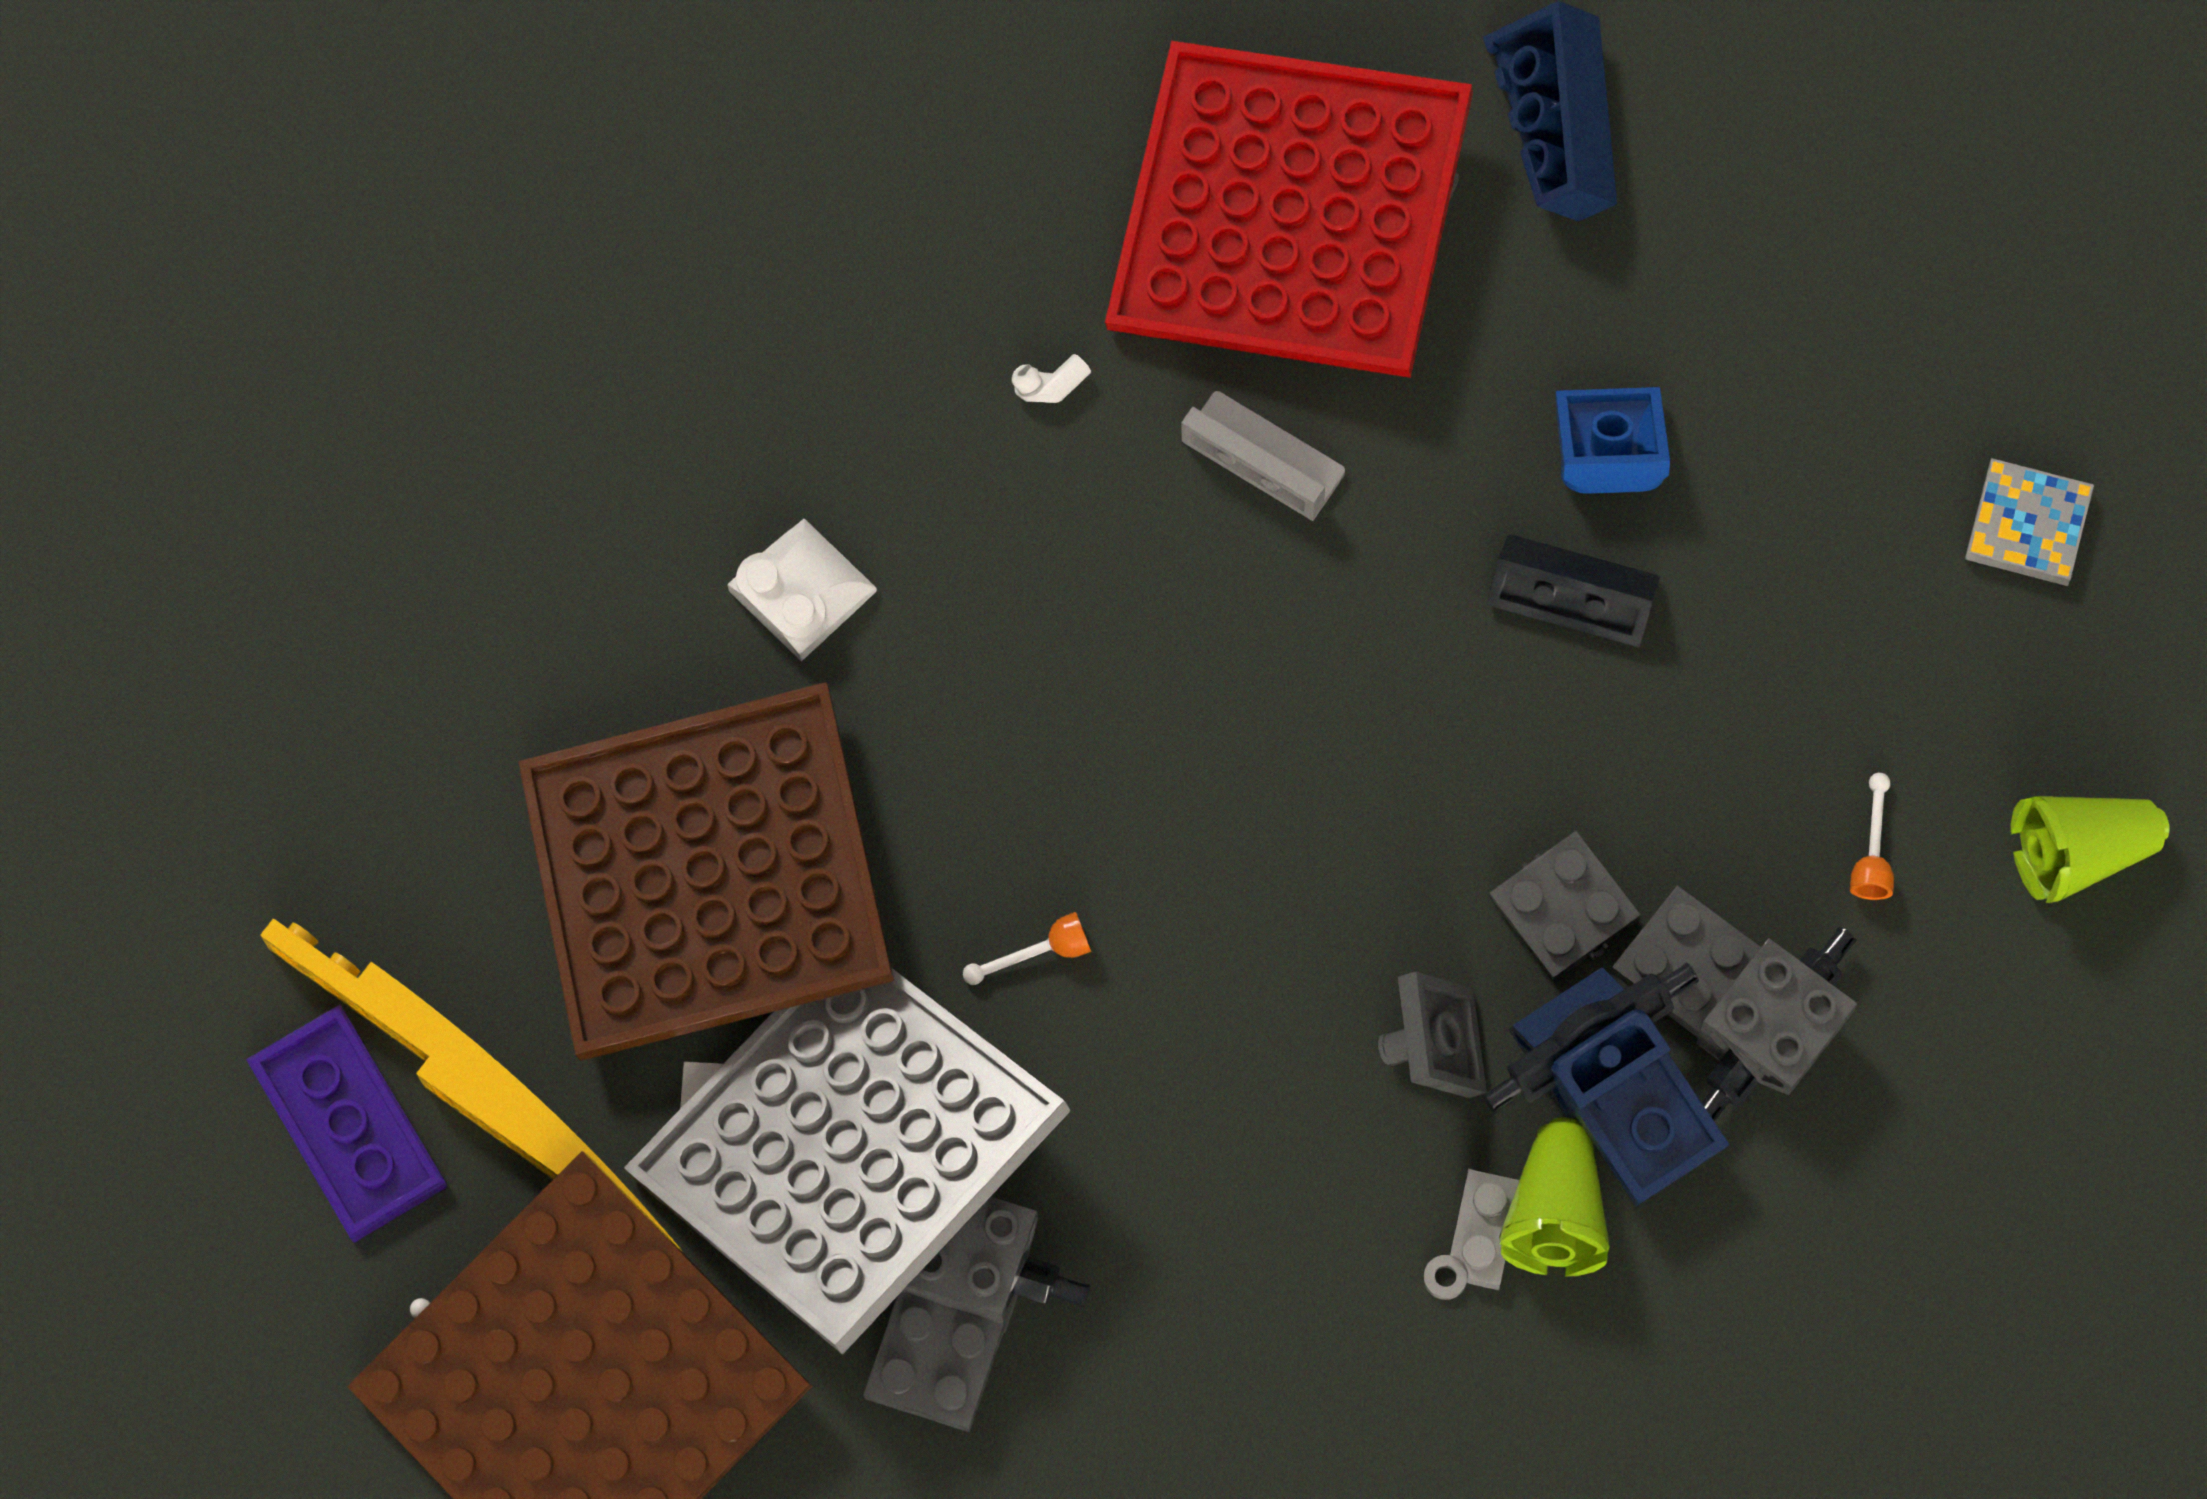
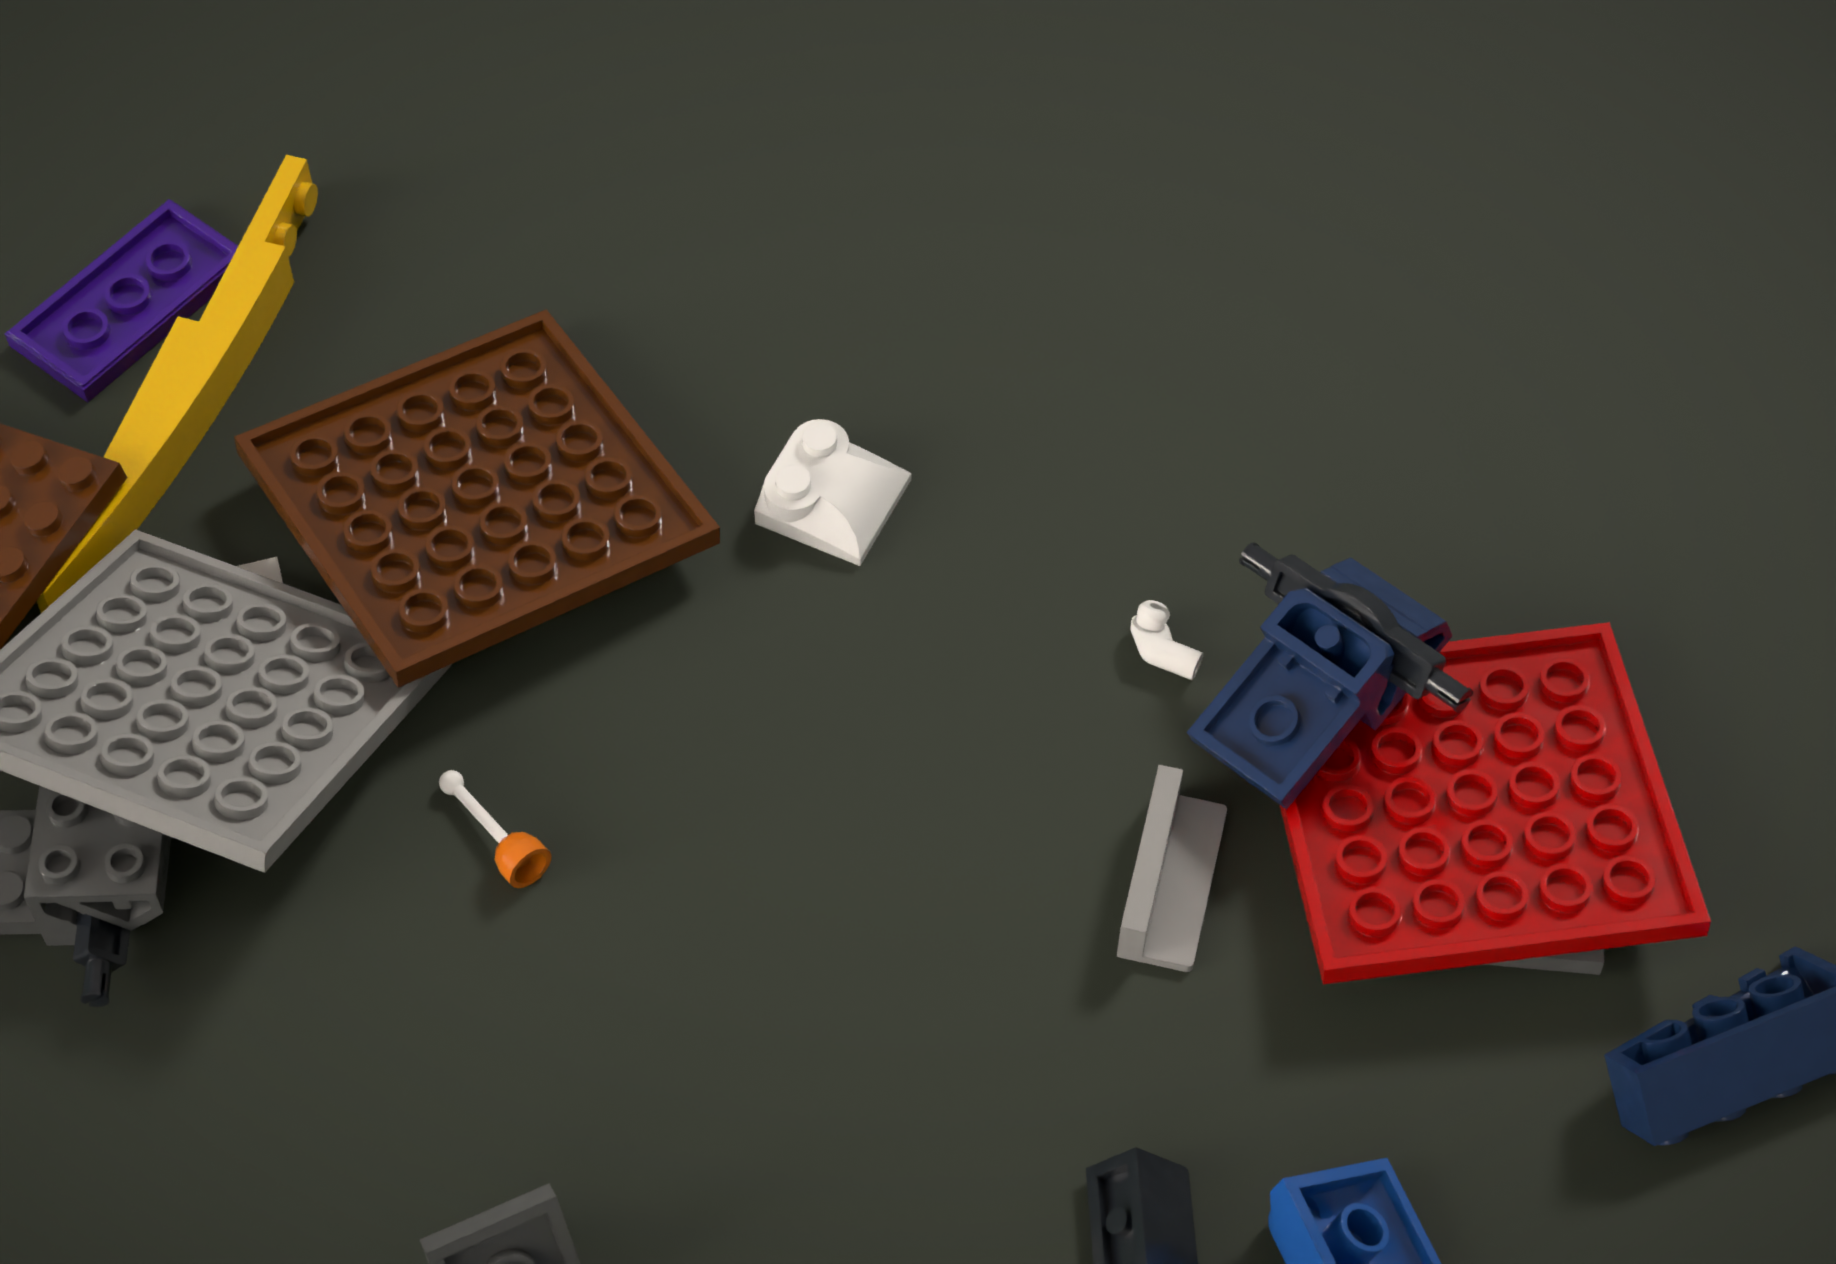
camera: 65 degrees right, 15 degrees down
(1160, 266) = (1330, 656): none -> dark blue piece

